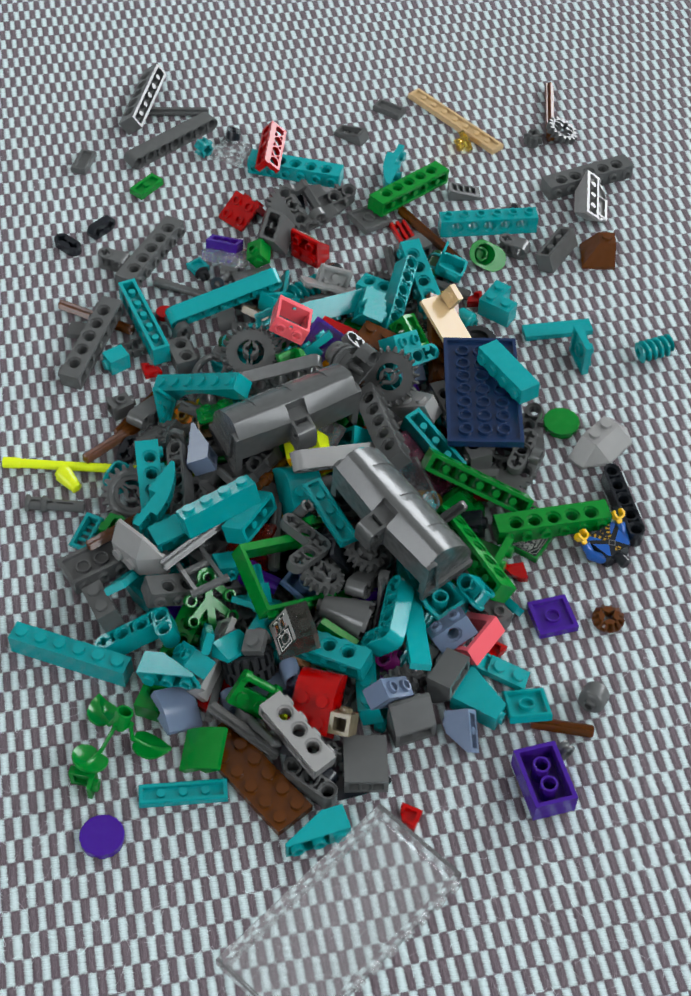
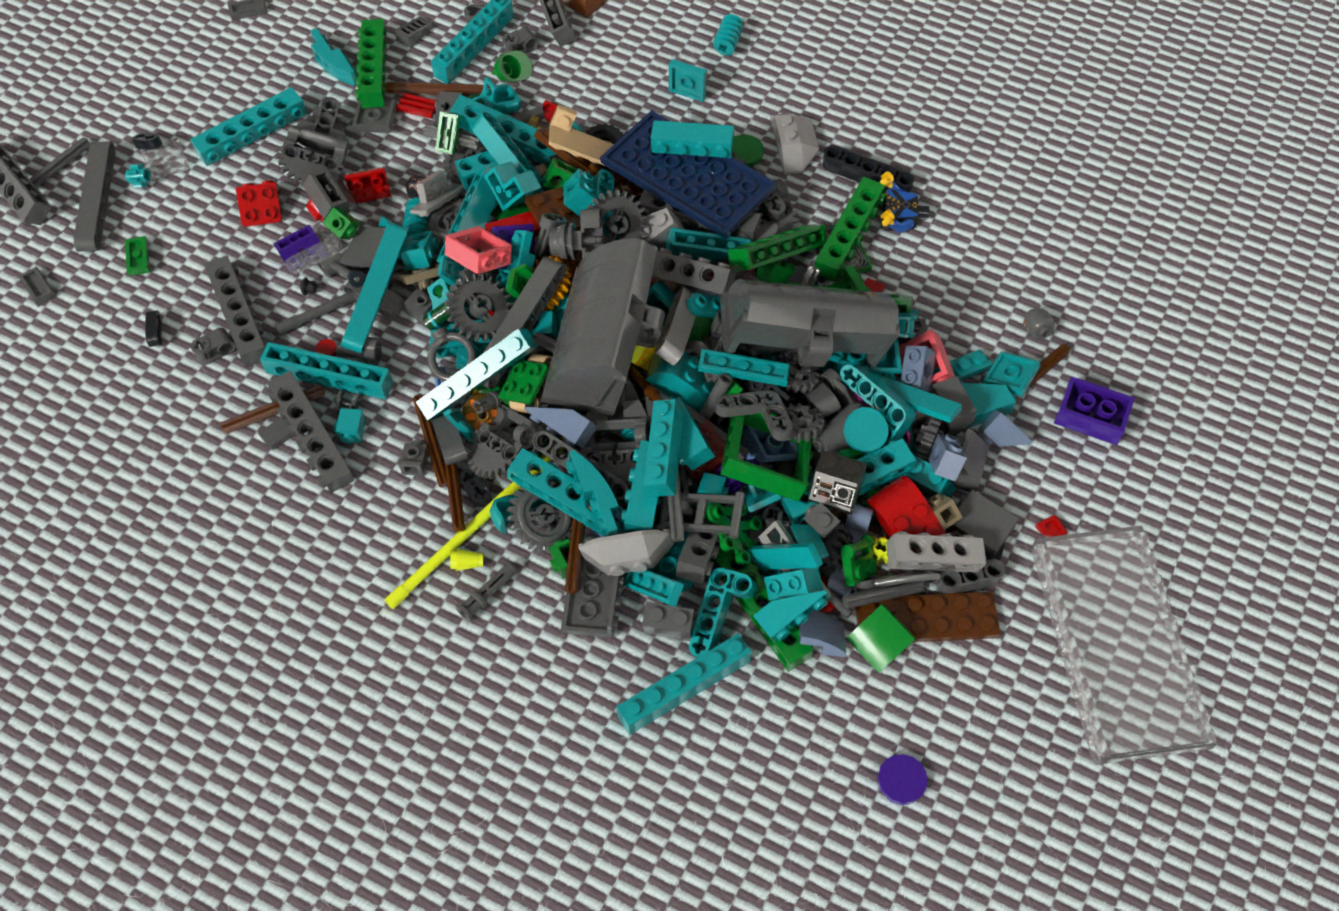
camera: 50 degrees left, 10 degrees up
(67, 244) = (144, 372): black beam -> none
(82, 778) = (828, 755): green bracket -> none
(85, 524) = (545, 564): teal slope -> none
(103, 713) = (838, 681): green plant -> none
(150, 371) = (388, 407): red tile -> none
(183, 355) = (400, 367): dark grey brick -> none
(183, 793) = (903, 685): teal tile -> none
(195, 264) = (291, 284): teal tile -> none
(268, 144) = (208, 124): fence -> none
(323, 829) = (1022, 599): teal slope -> none
(352, 134) = (255, 54): dark grey slope -> none
(353, 620) = (865, 429): none -> teal tile
(386, 255) = (454, 135): none -> tile
(496, 304) = (584, 99): teal brick -> none
(552, 616) = (935, 296): dark purple tile -> none
(554, 329) = (640, 82): teal tile -> none
(565, 750) = (1067, 375): dark grey bush -> none
(610, 625) = (962, 267): reddish brown gear -> none

